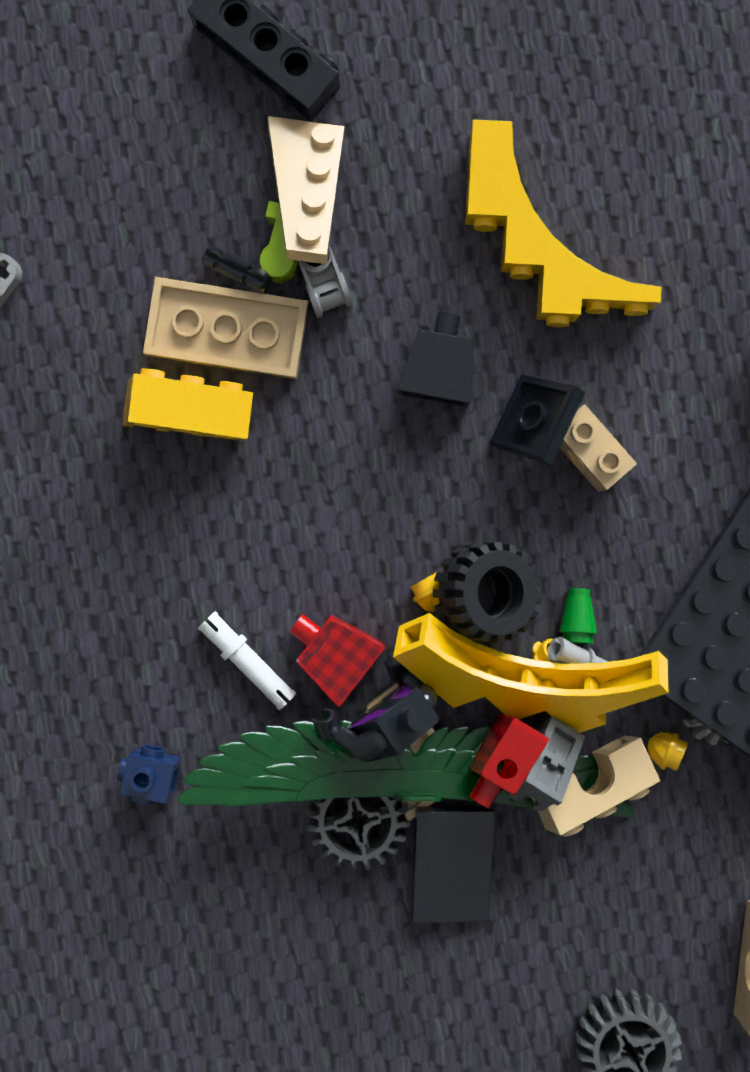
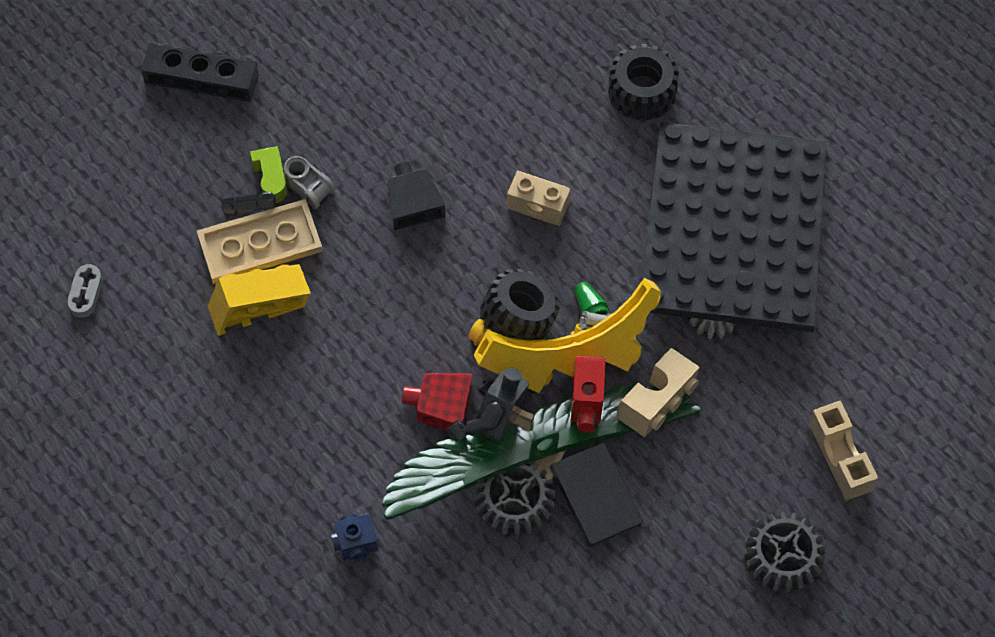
camera: 25 degrees left, 25 degrees down
(246, 660) = (376, 434): white pin -> none
(306, 176) = (268, 130): wing -> none
(528, 246) = (431, 105): yellow arch -> none
(537, 418) = (492, 195): black tile -> none
(554, 767) = (618, 385): dark grey hinge -> none
(667, 750) = (697, 352): yellow plate -> none

